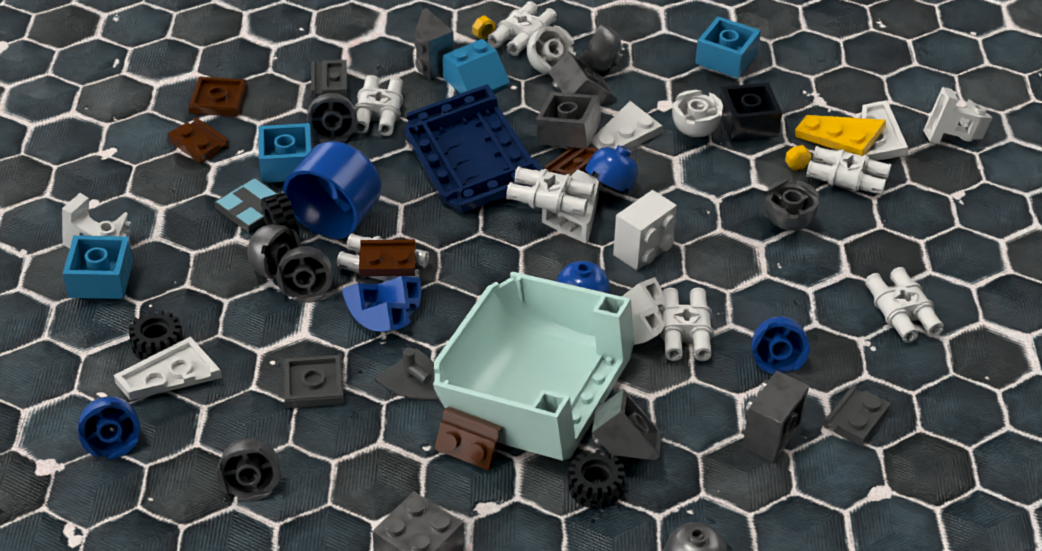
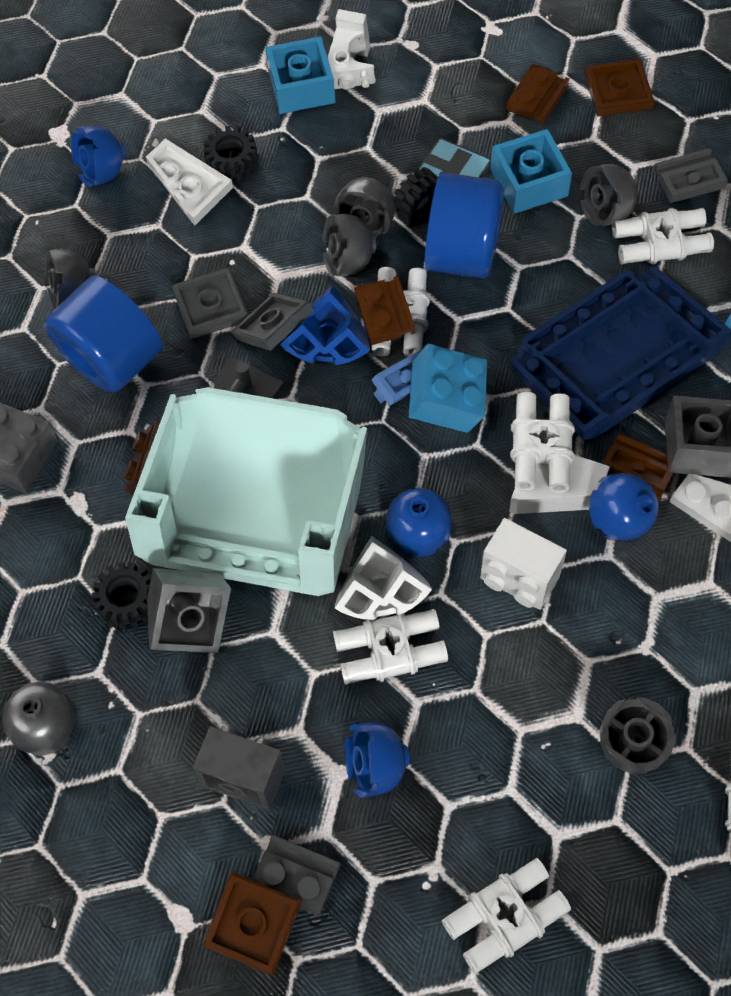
camera: 80 degrees right, 20 degrees up
(340, 431) = (103, 334): none -> blue piece
(361, 333) = (272, 321): none -> dark grey tile
(454, 268) = (395, 381): none -> medium blue hinge
(476, 238) = (448, 388): none -> dark azure brick
(892, 442) = (252, 923): none -> reddish brown tile

